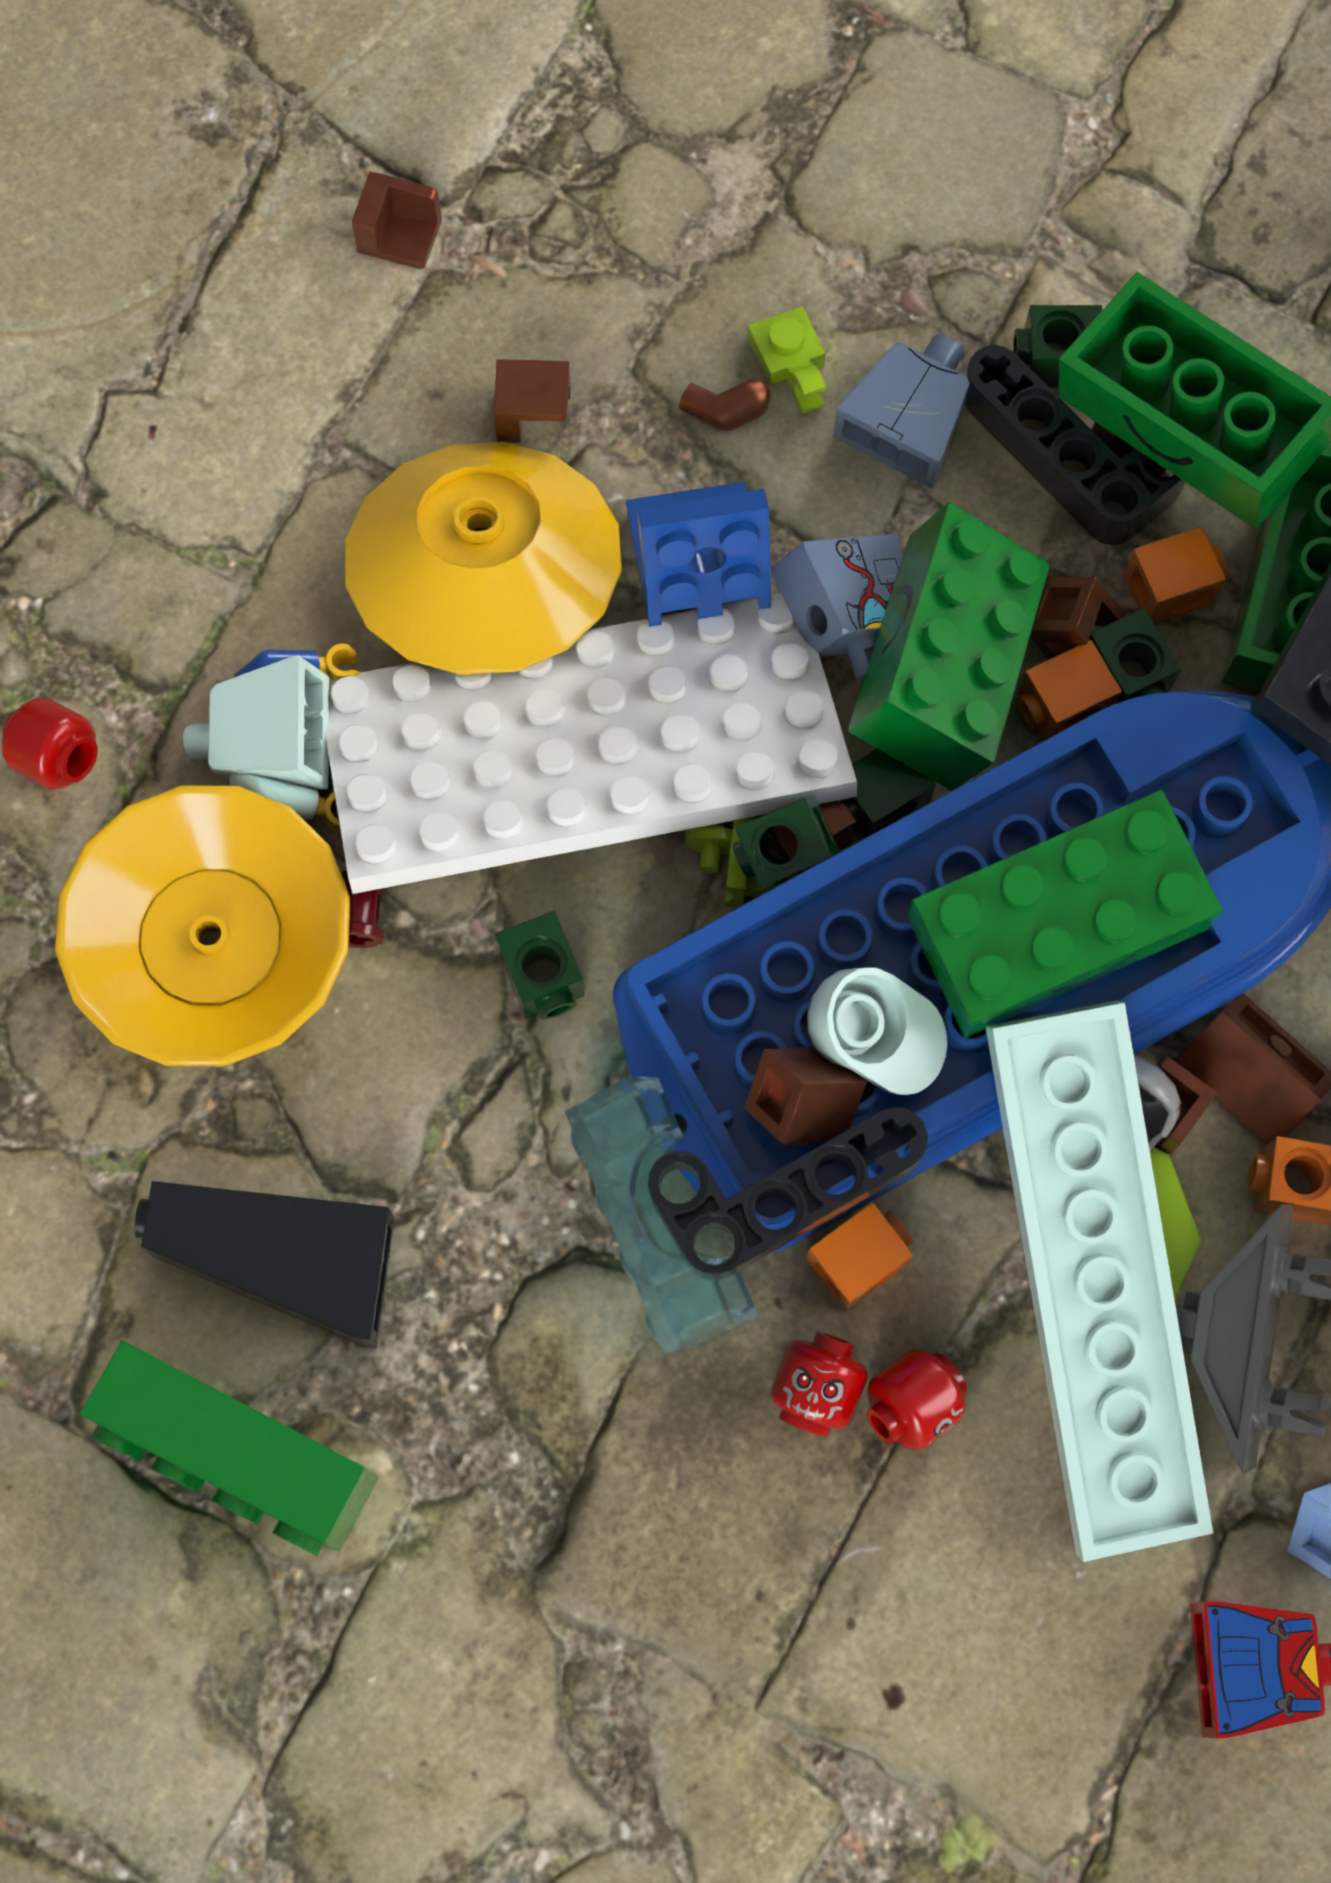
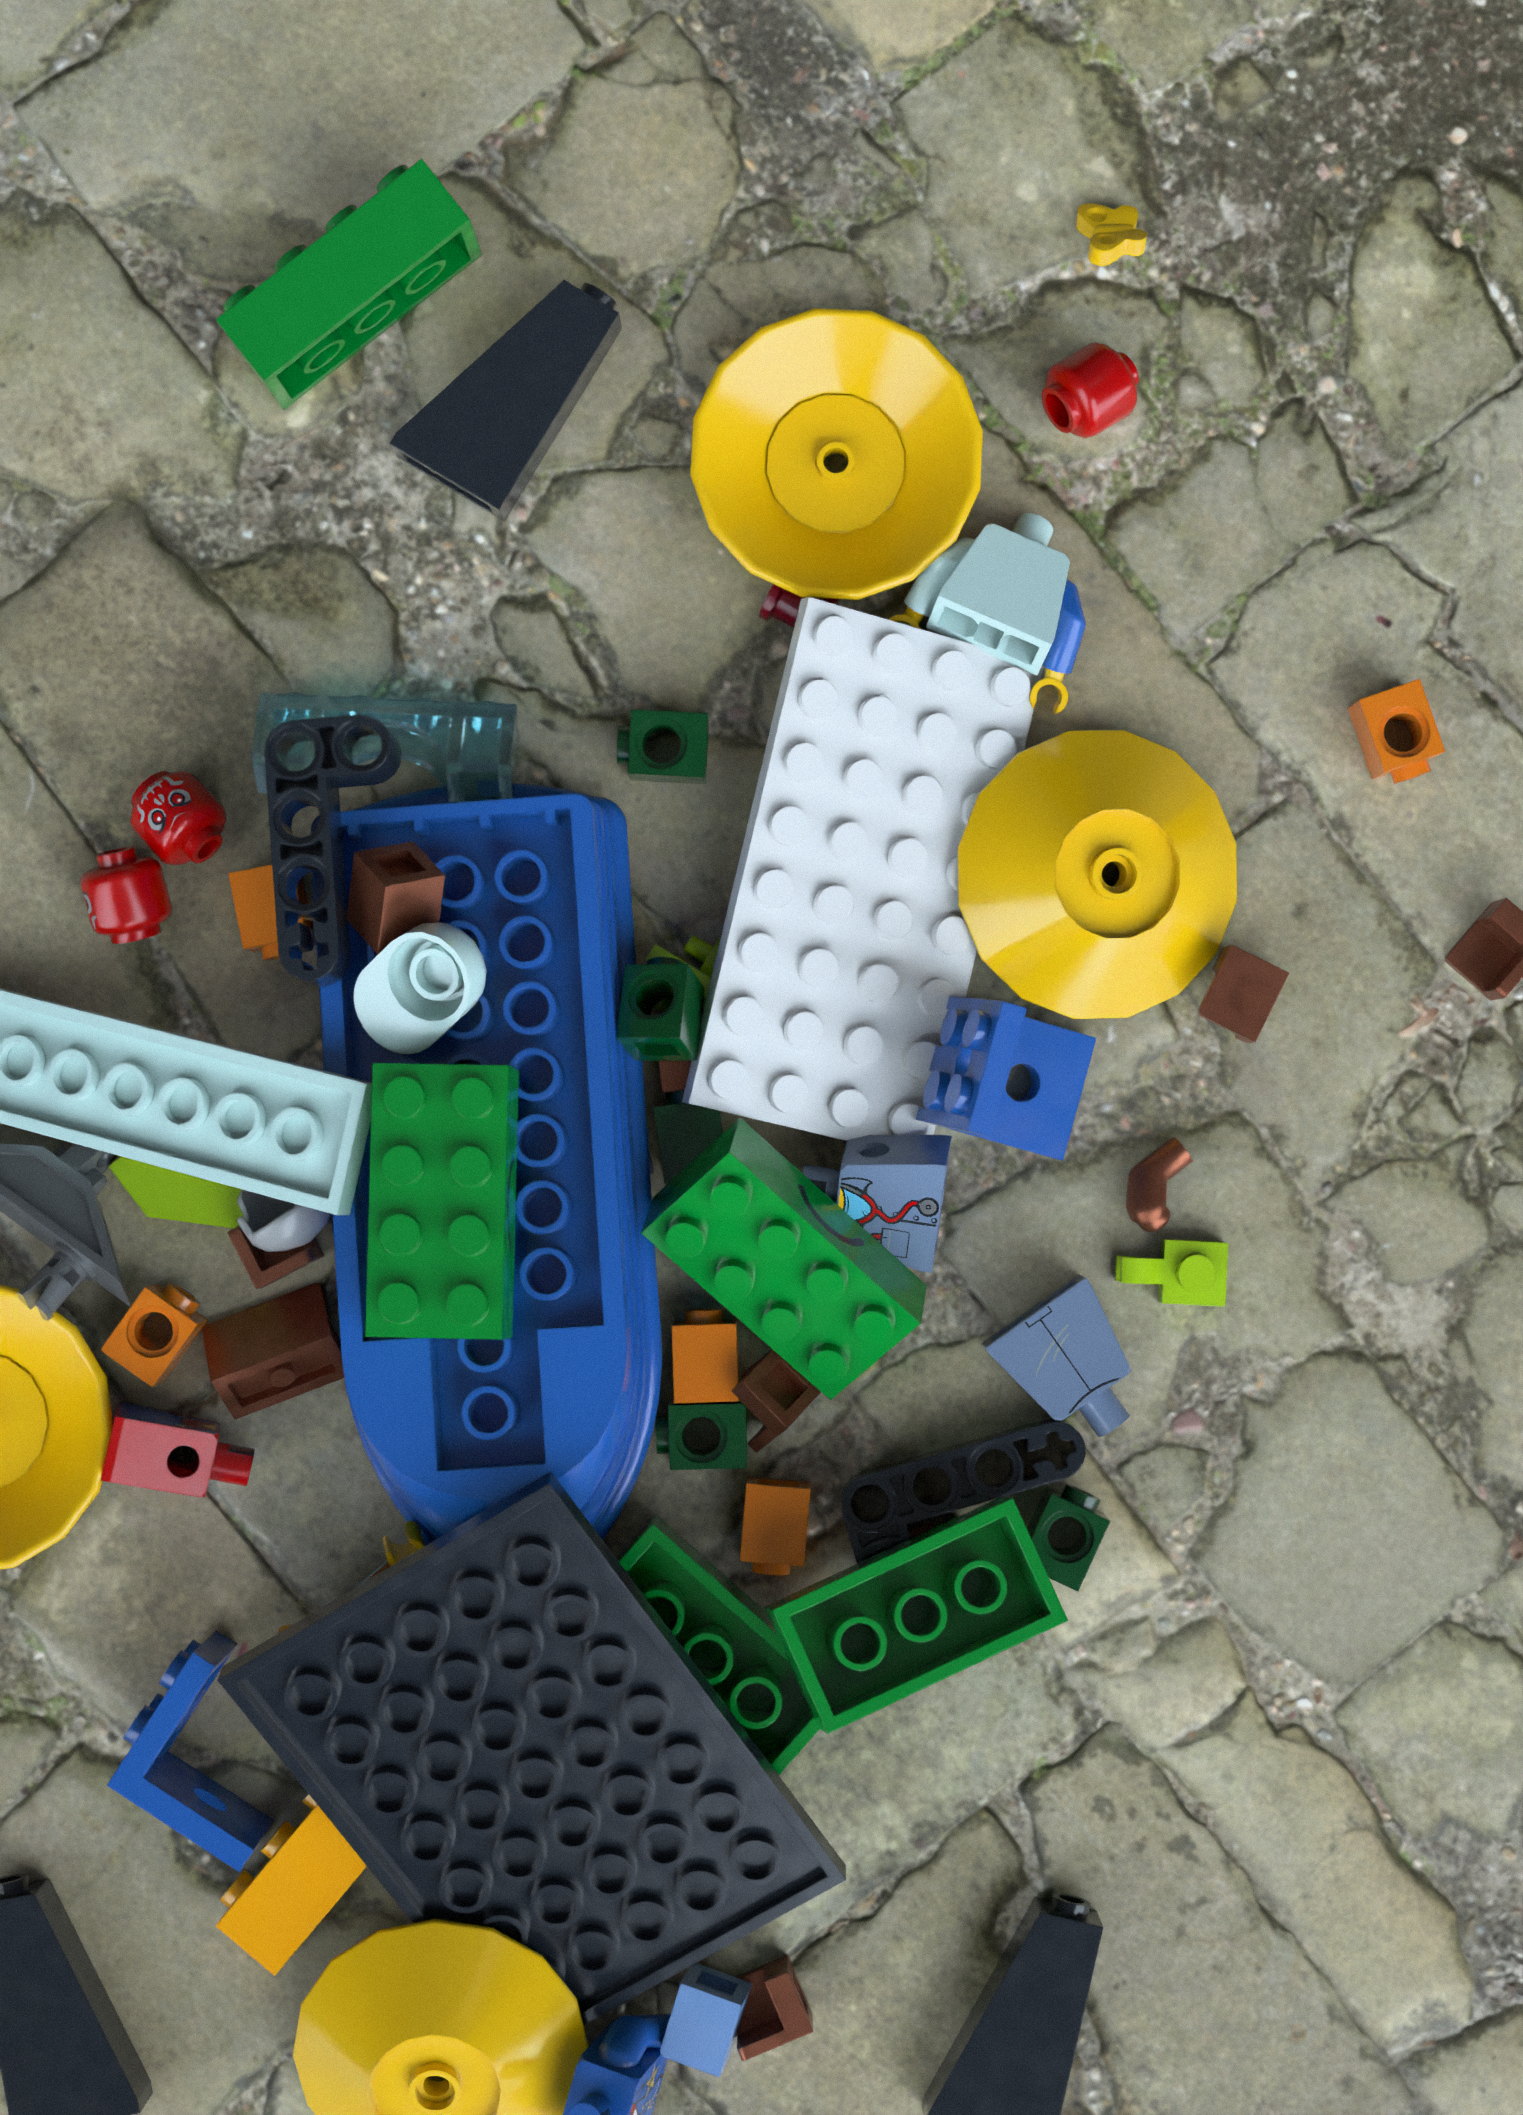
camera: 125 degrees right, 15 degrees up
(245, 395) = (1405, 704): none -> orange brick

